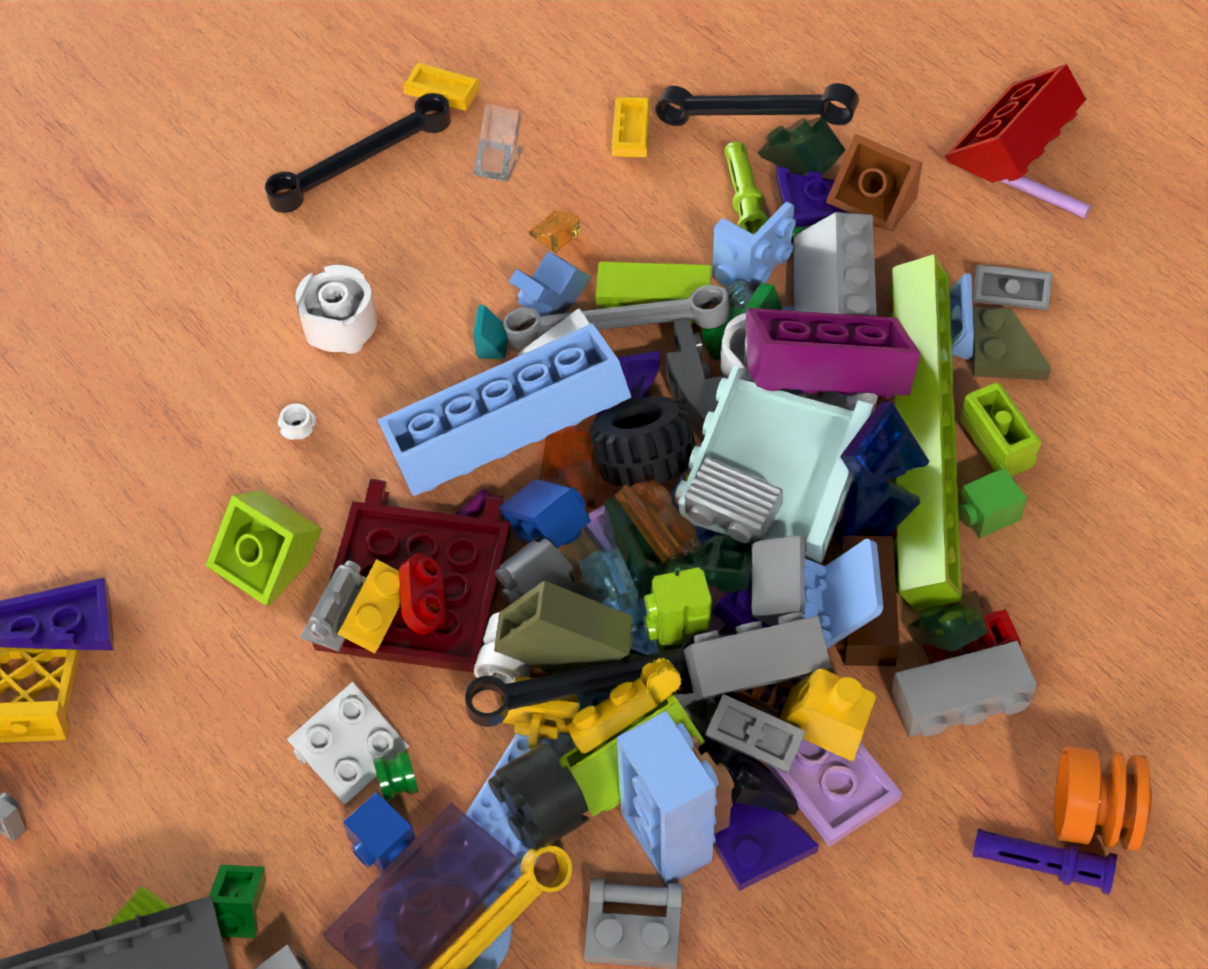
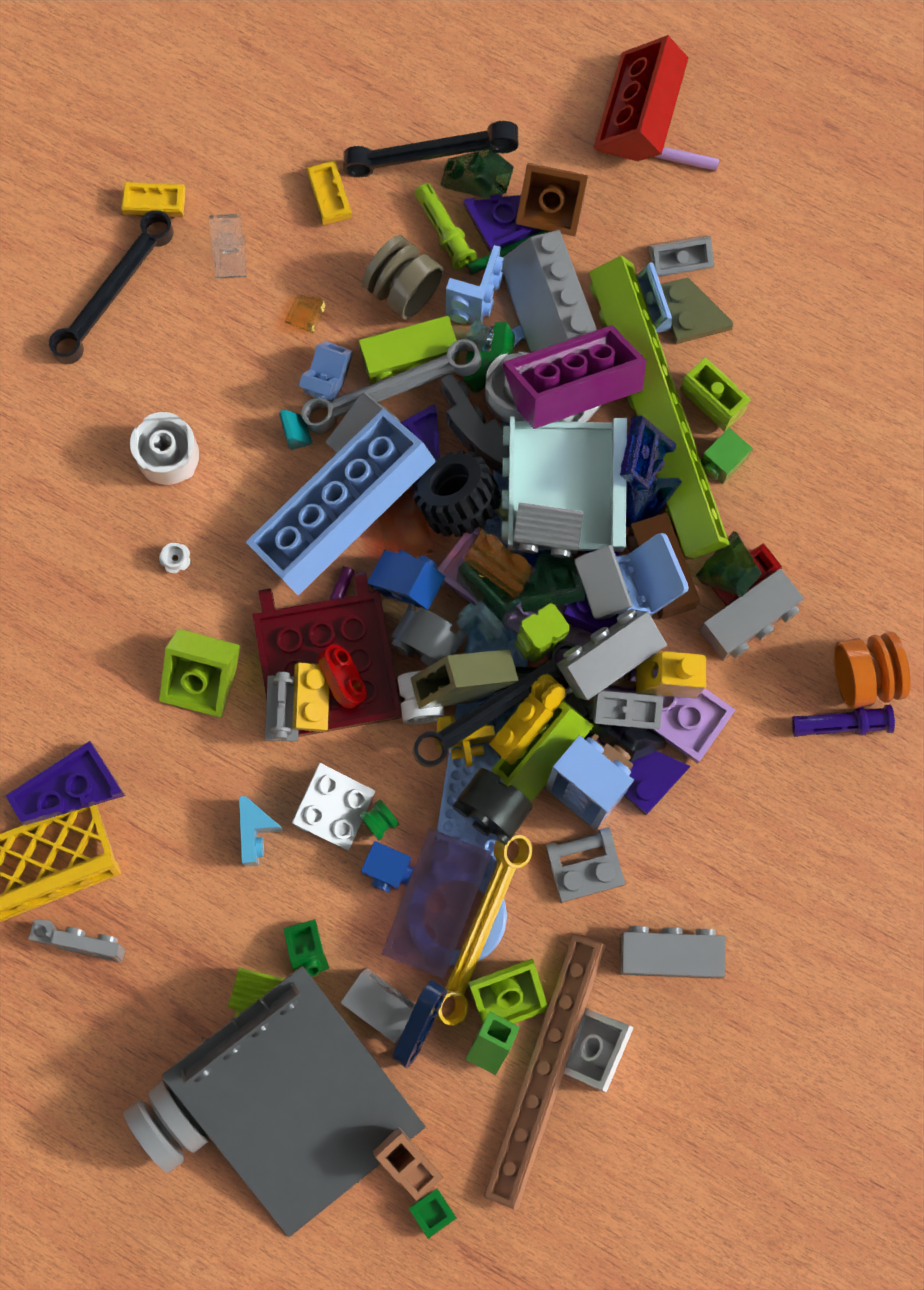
camera: 25 degrees left, 20 degrees up
(240, 731) = (253, 821): none -> medium azure slope
(673, 215) = (402, 277): none -> dark tan wheel

